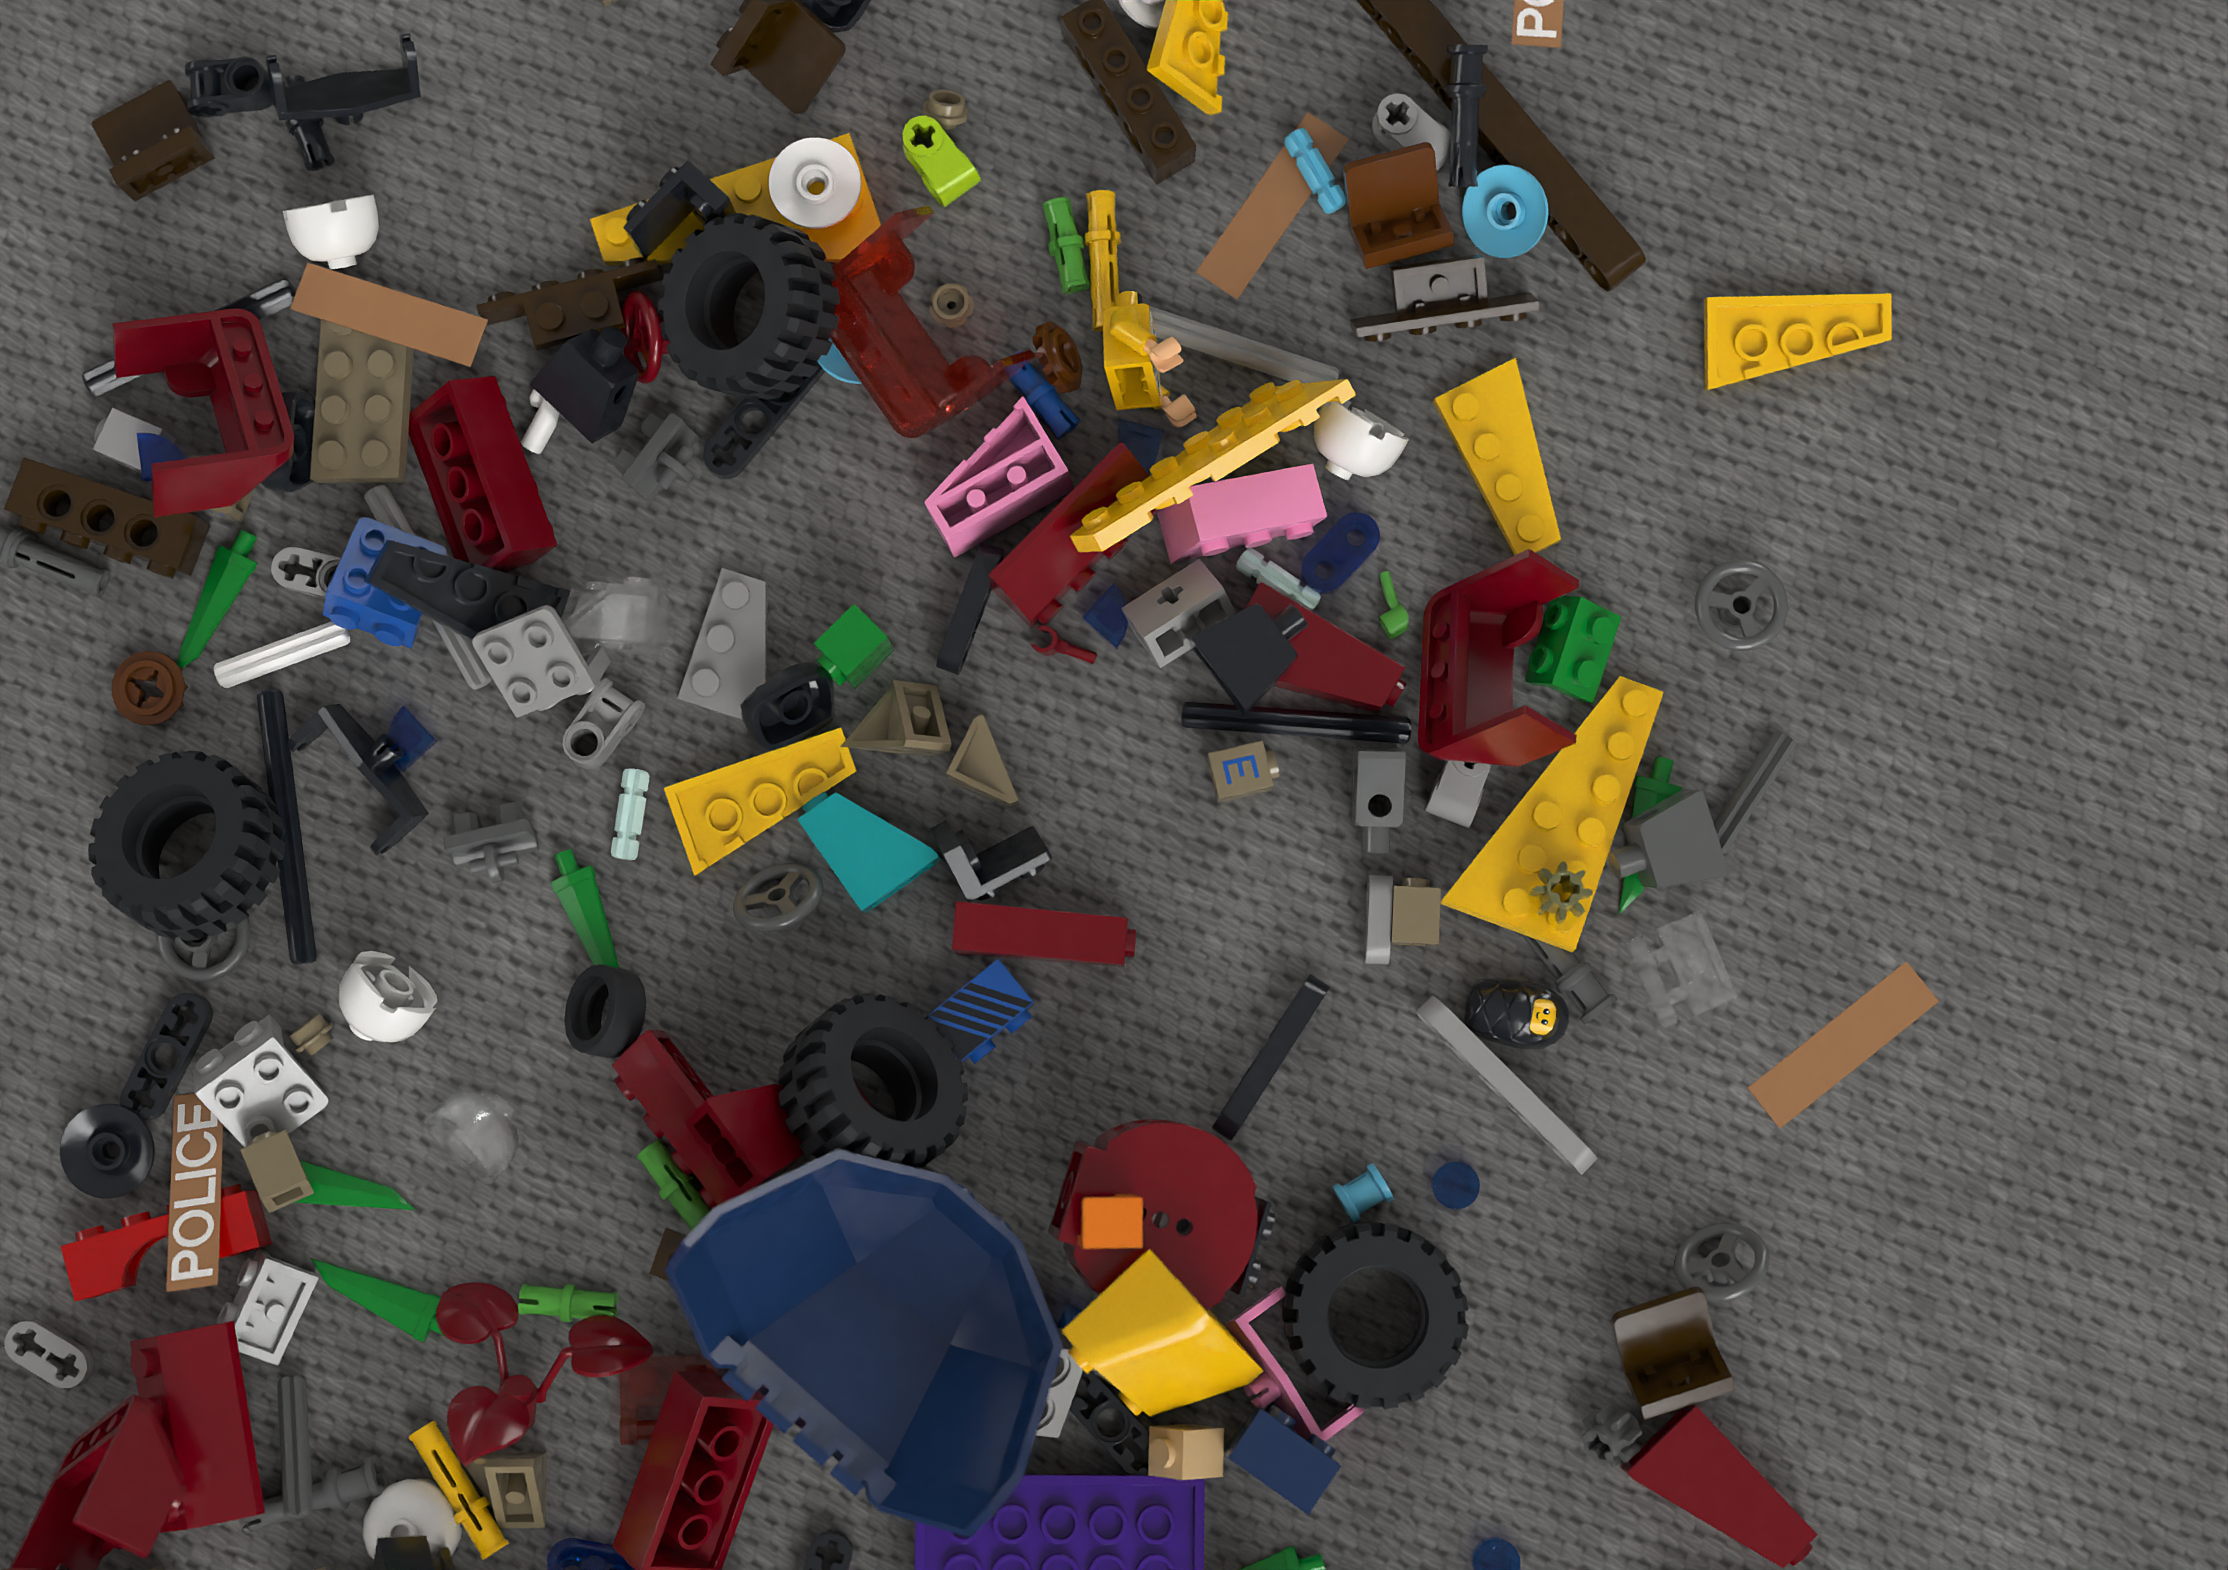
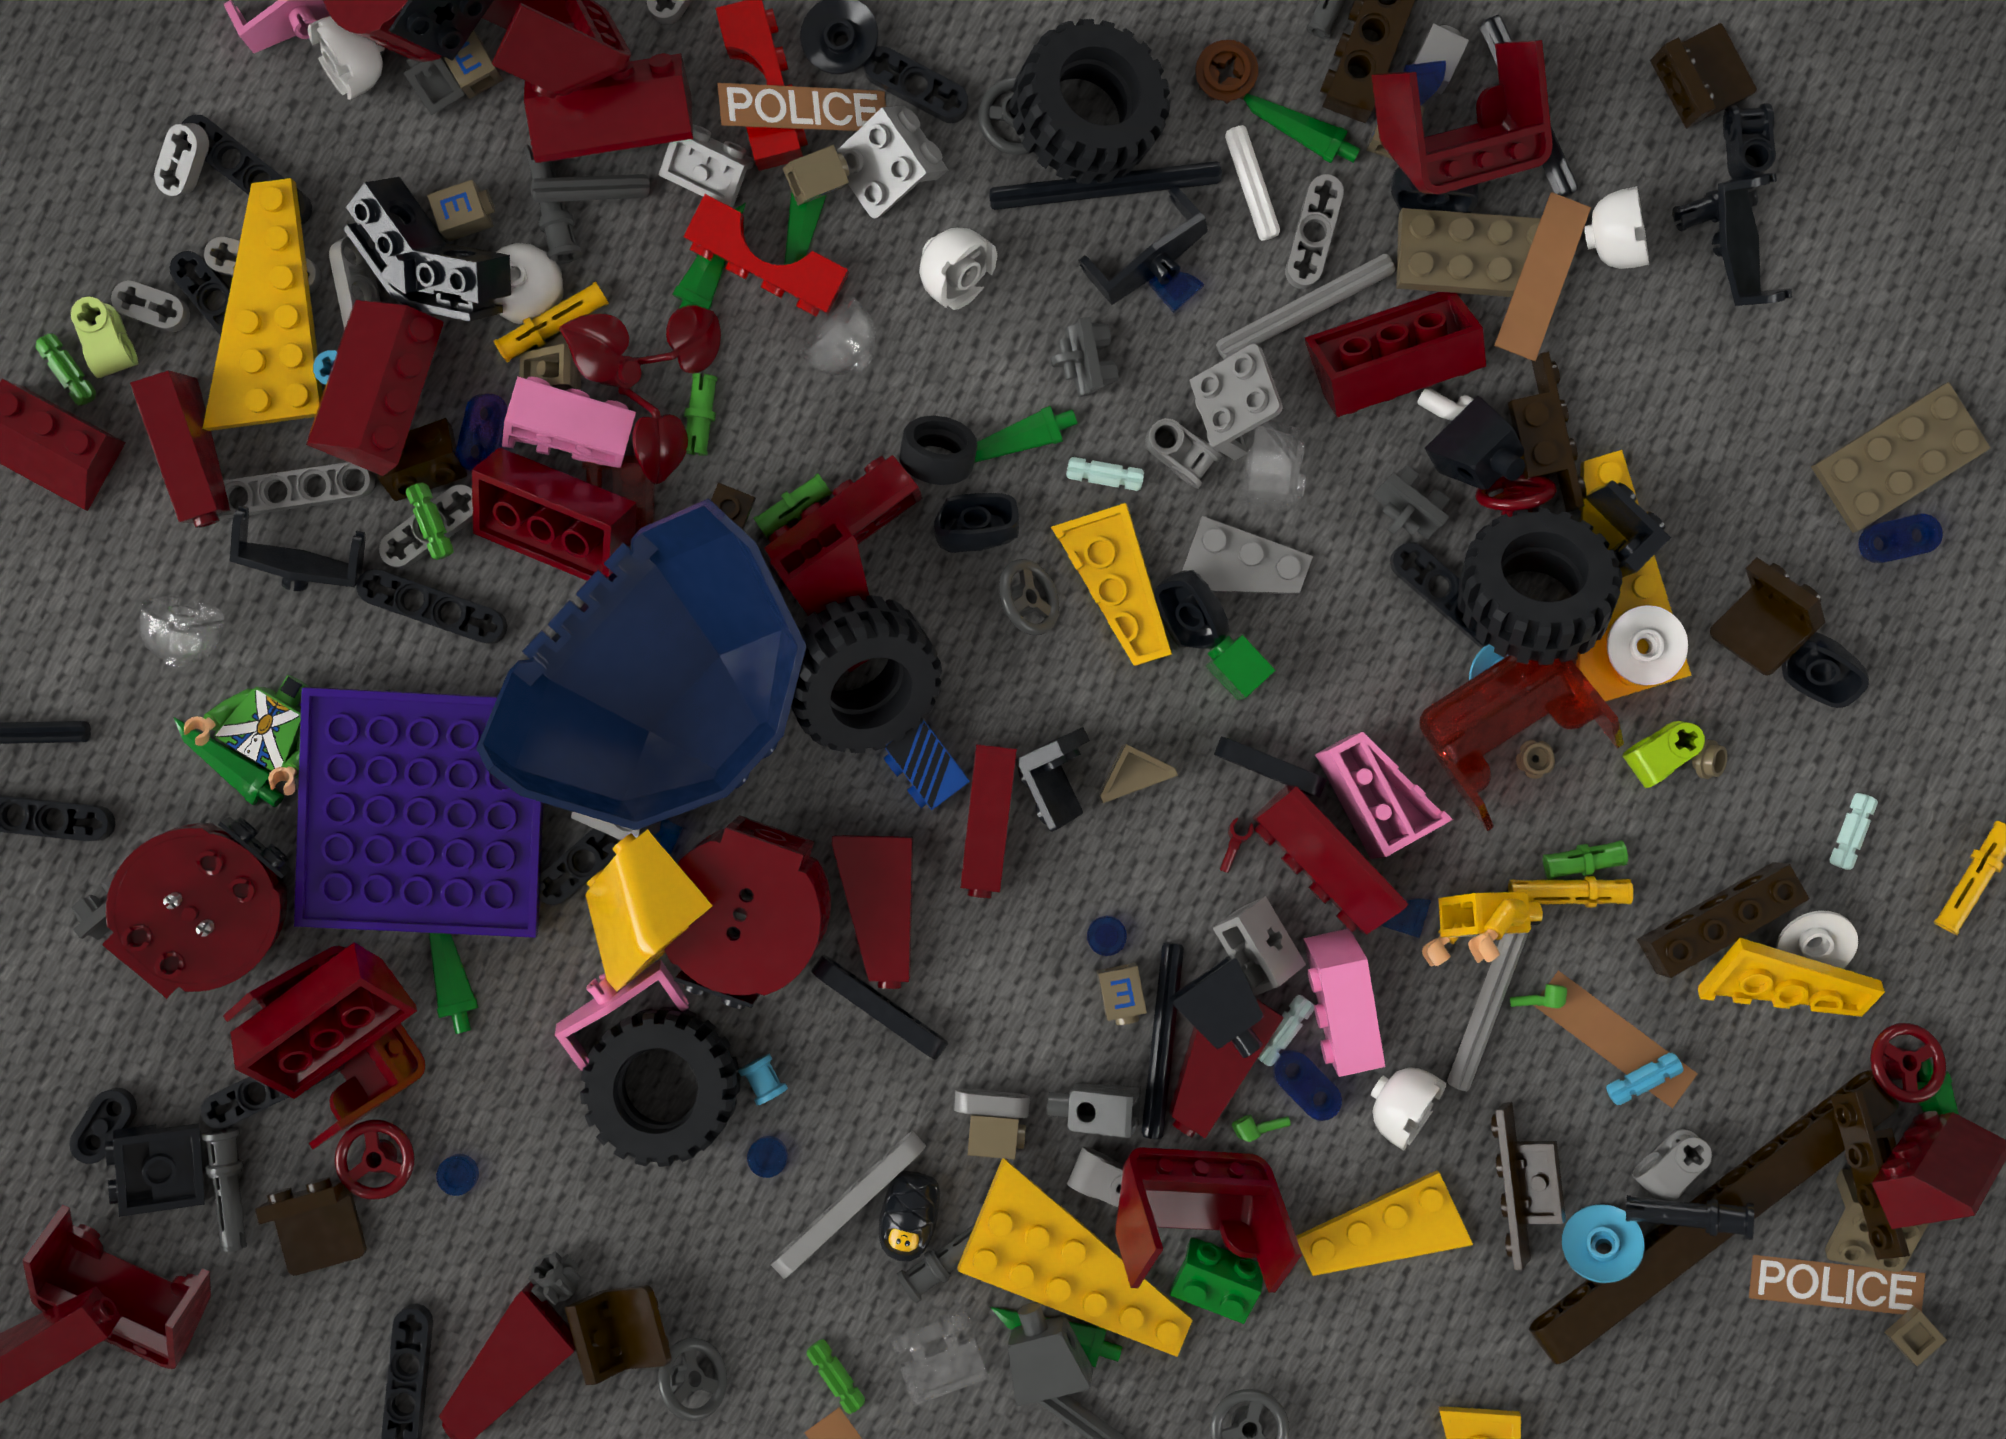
camera: 90 degrees right, 5 degrees up
(312, 1035) = (929, 205): dark tan plate -> none
(348, 1285) = (720, 232): none -> red arch
(359, 605) = (1310, 269): blue bracket -> none
(458, 592) = (1297, 334): black wing -> none
(580, 1460) = (567, 422): none -> bright pink wedge
(690, 963) = (976, 522): none -> black piece
(864, 849) = (1067, 670): teal slope -> none
(904, 722) = (1174, 708): dark tan slope -> none
(1044, 400) = (1449, 836): blue pin -> none
(1058, 357) = (1486, 850): reddish brown gear -> none
(1108, 618) = (1259, 883): clear blue tile -> none
(1111, 1222) = (735, 875): orange panel -> none
(1139, 1061) = (879, 897): none -> dark red slope
(1176, 792) = (1106, 935): none -> clear blue tile
(1186, 1451) = (555, 923): tan brick -> none
(1226, 275) = (1554, 997): none -> bright green hand
(1236, 439) = (1403, 998): yellow wing -> none
(1283, 1458) = (543, 1004): dark blue slope -> none
(1396, 205) = (1610, 1149): reddish brown bracket -> none
(1570, 883) = (1014, 1269): olive gear -> none
(1710, 1092) = (835, 1376): none -> bright green axle

